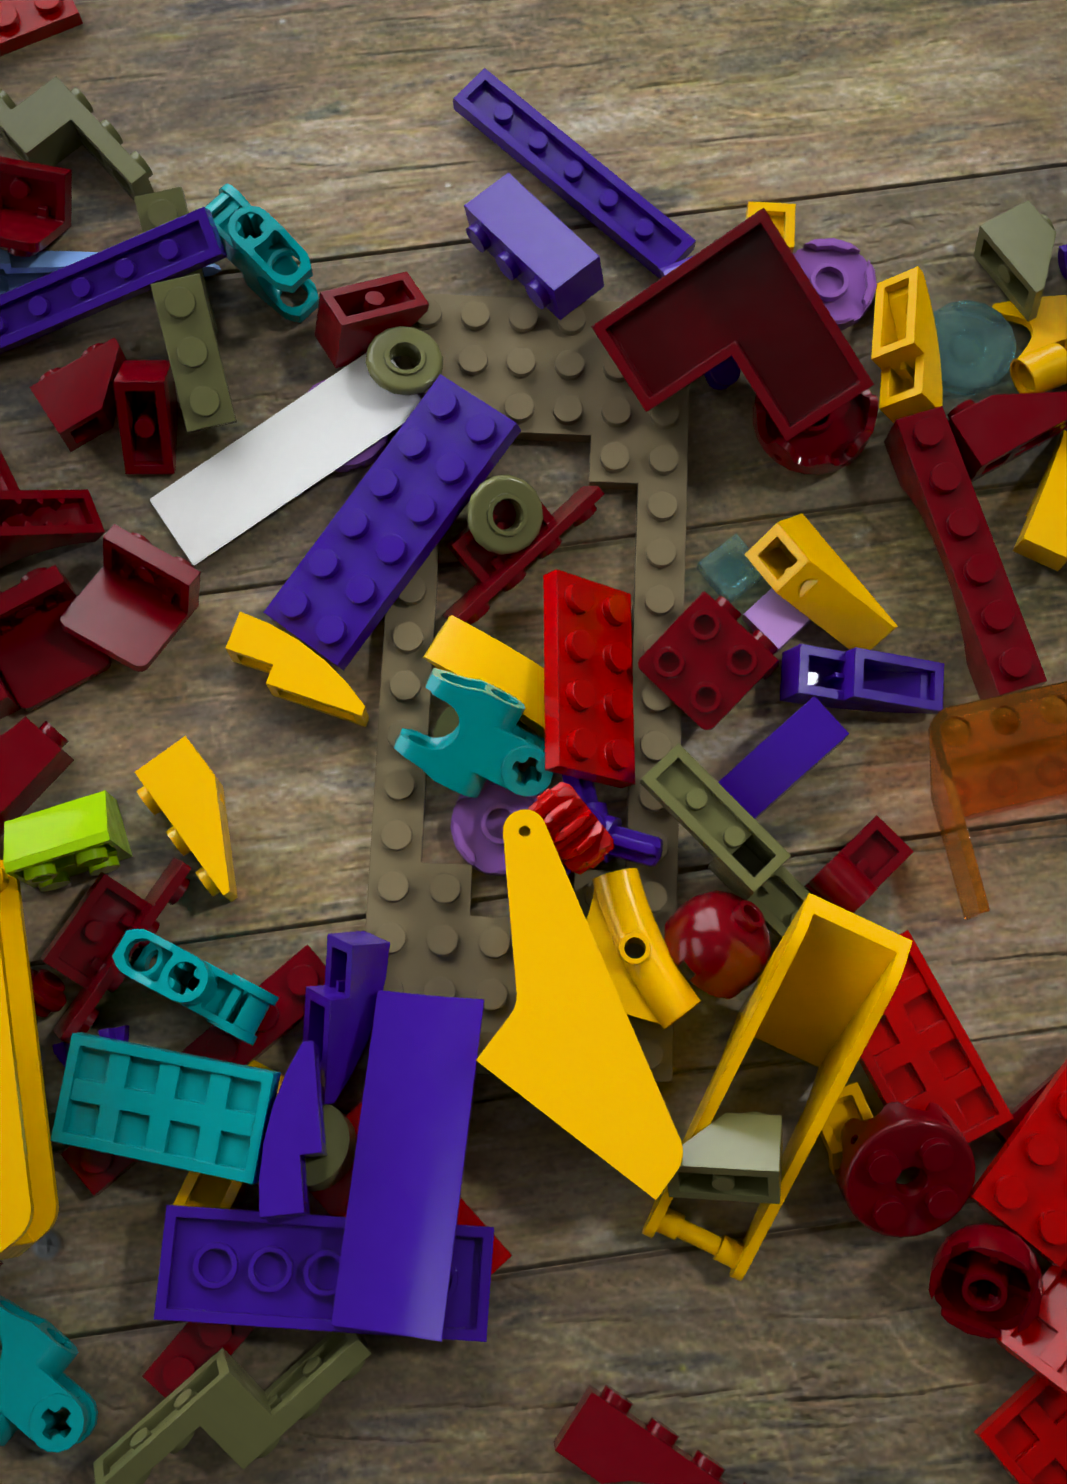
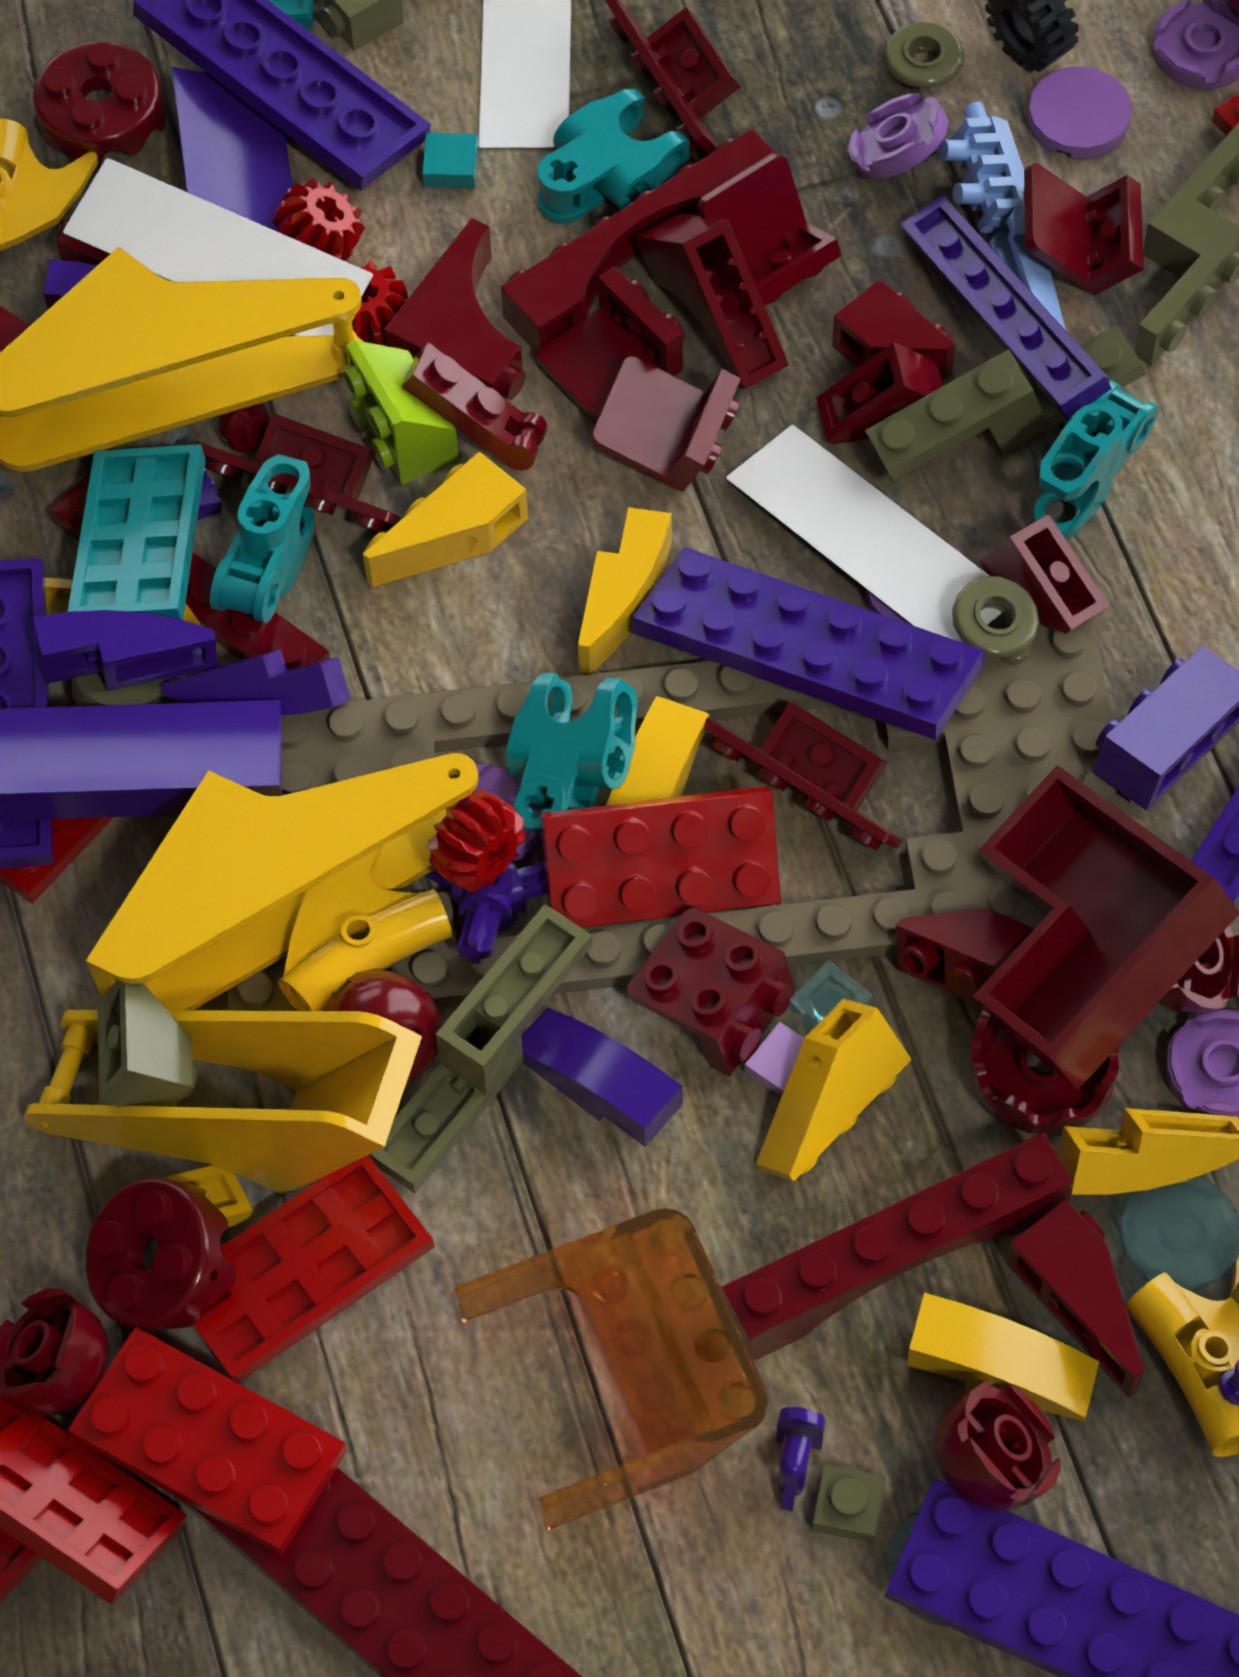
camera: 85 degrees right, 15 degrees down
(82, 770) = (475, 408): none -> dark red plate
(527, 511) = (807, 737): olive piece -> none
(712, 450) = (957, 947): none -> dark red slope
(860, 866) = (495, 1181): dark red plate -> none
(861, 680) = (723, 1160): dark purple slope -> none

